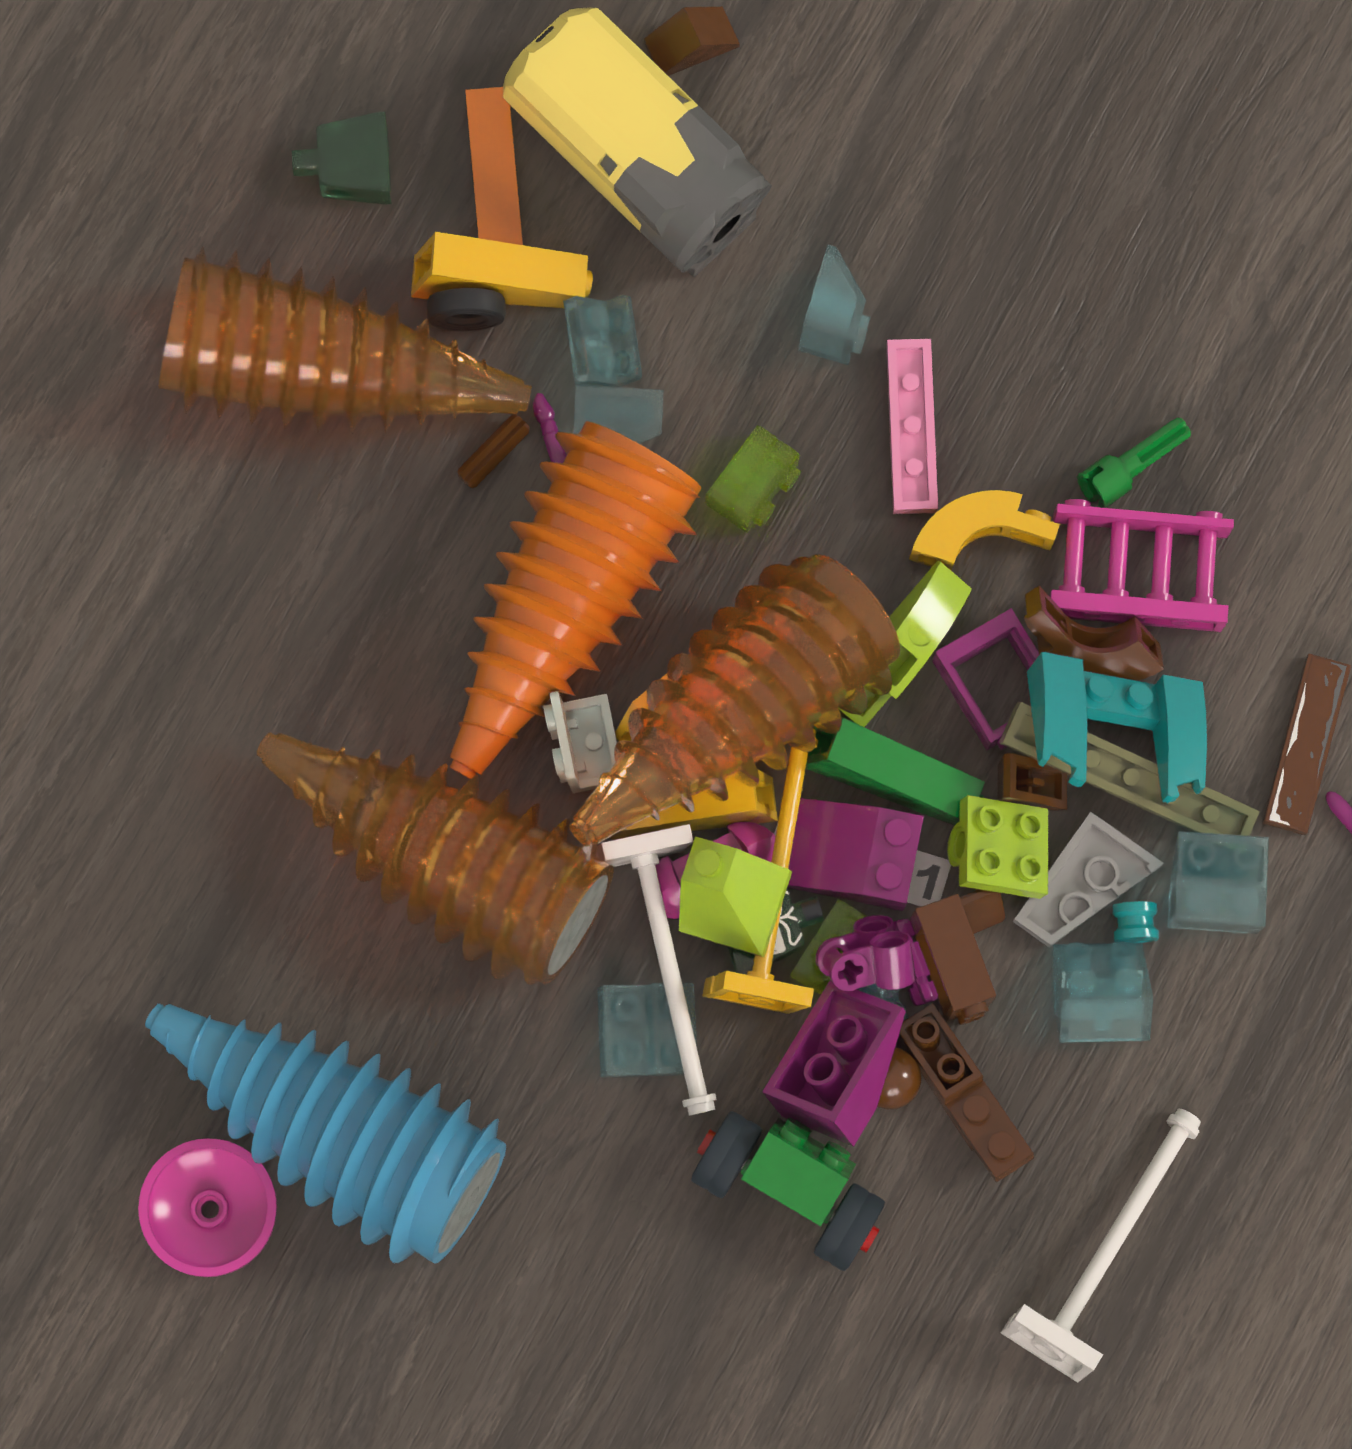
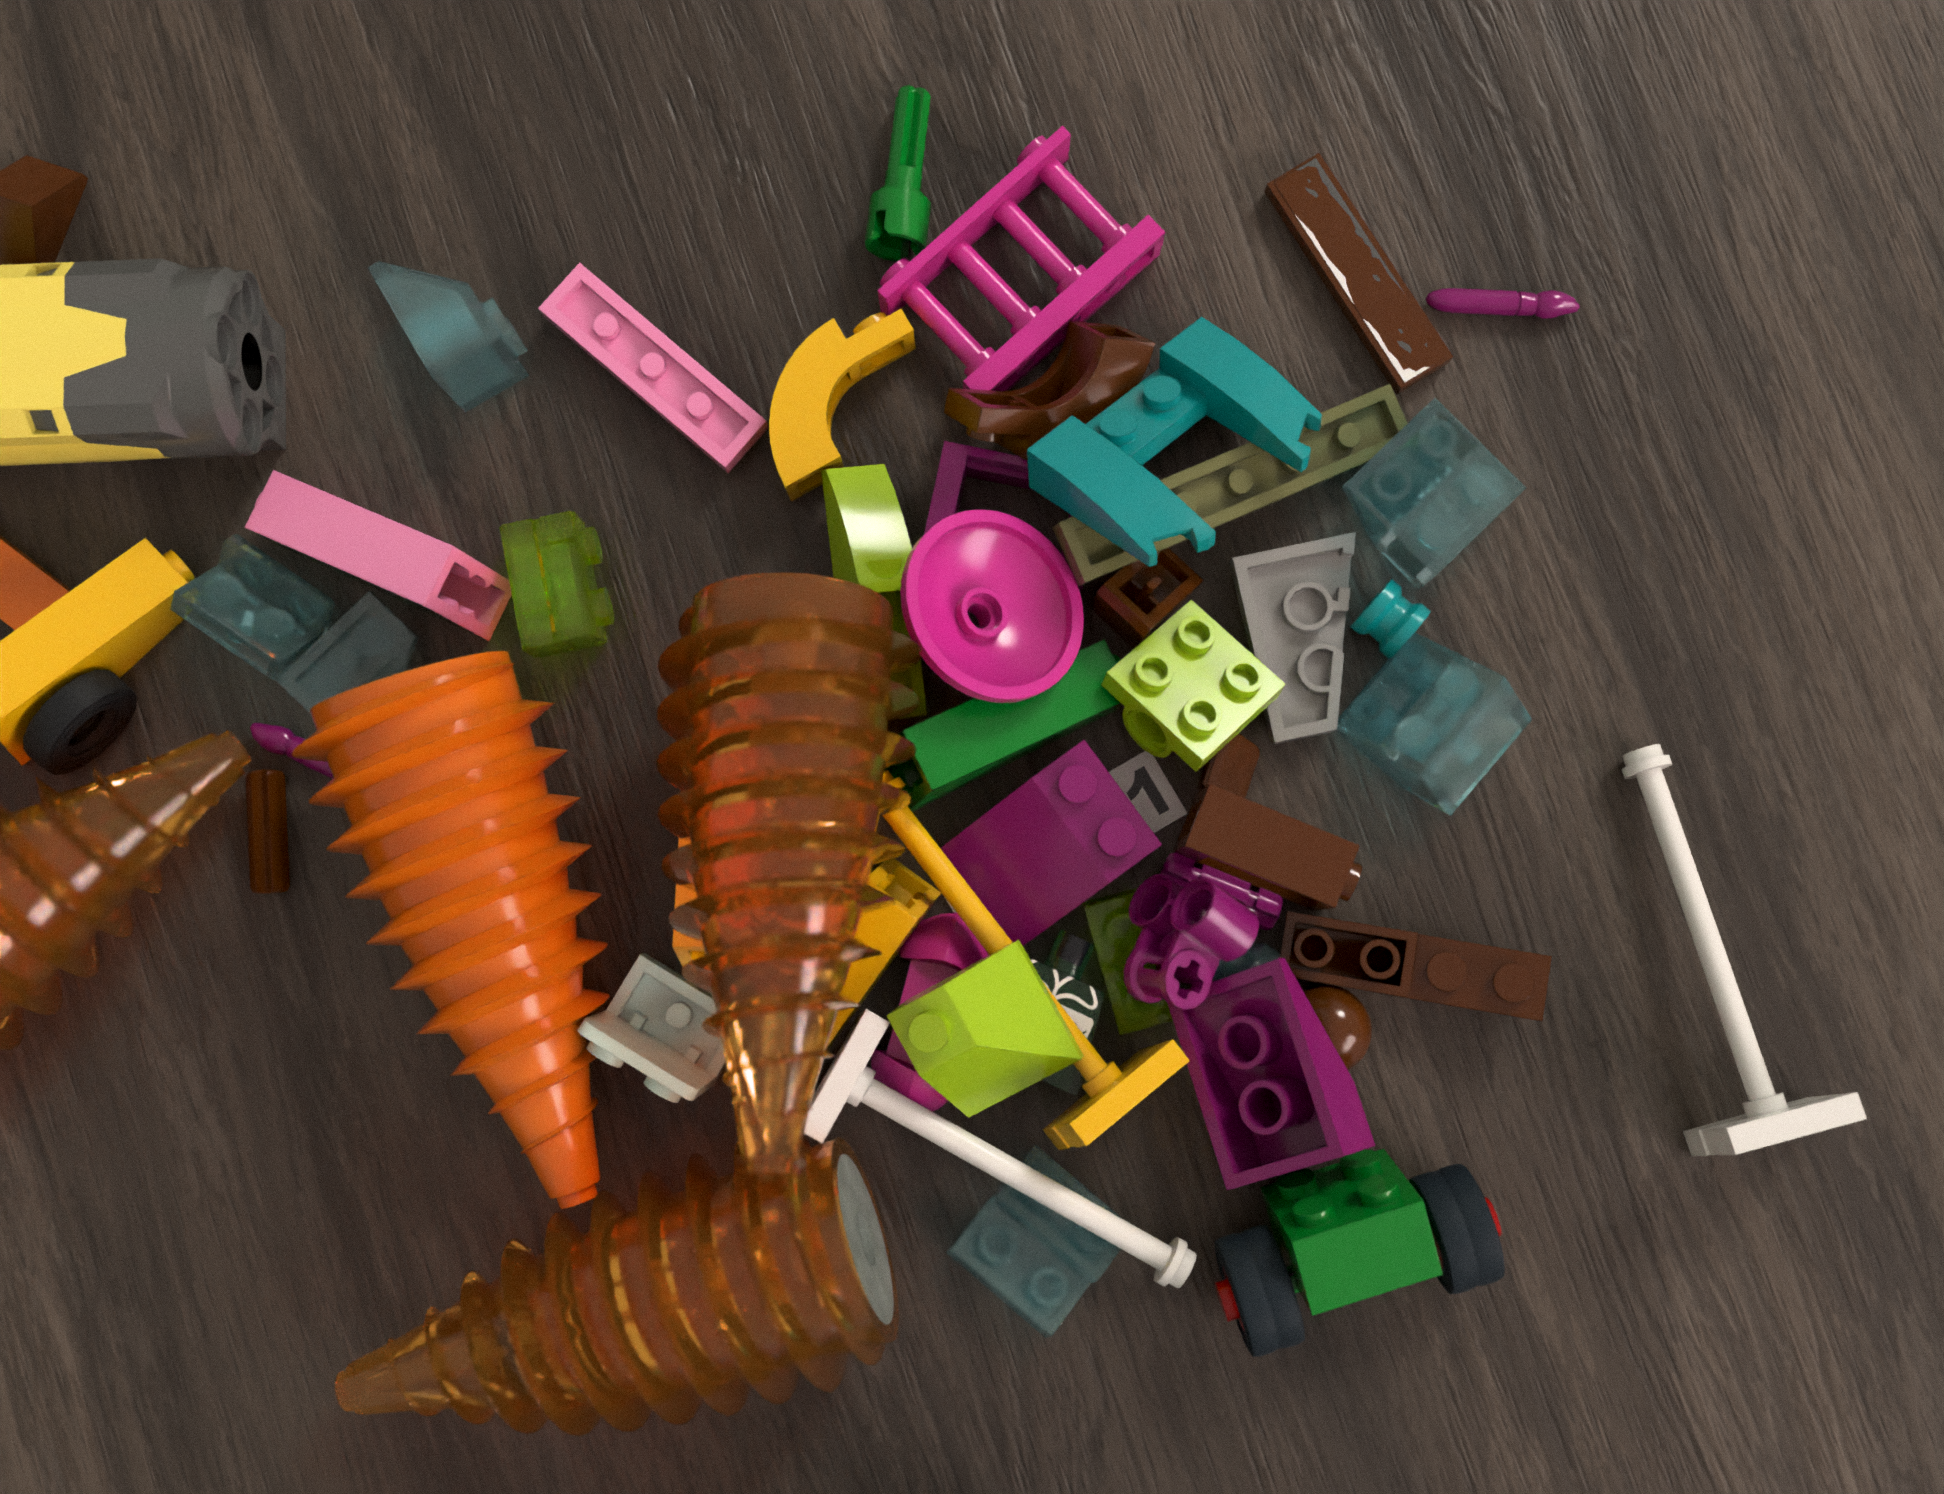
camera: 40 degrees left, 5 degrees up
(687, 379) = (381, 554): none -> bright pink slope
(967, 712) = (1015, 589): none -> dark pink dish

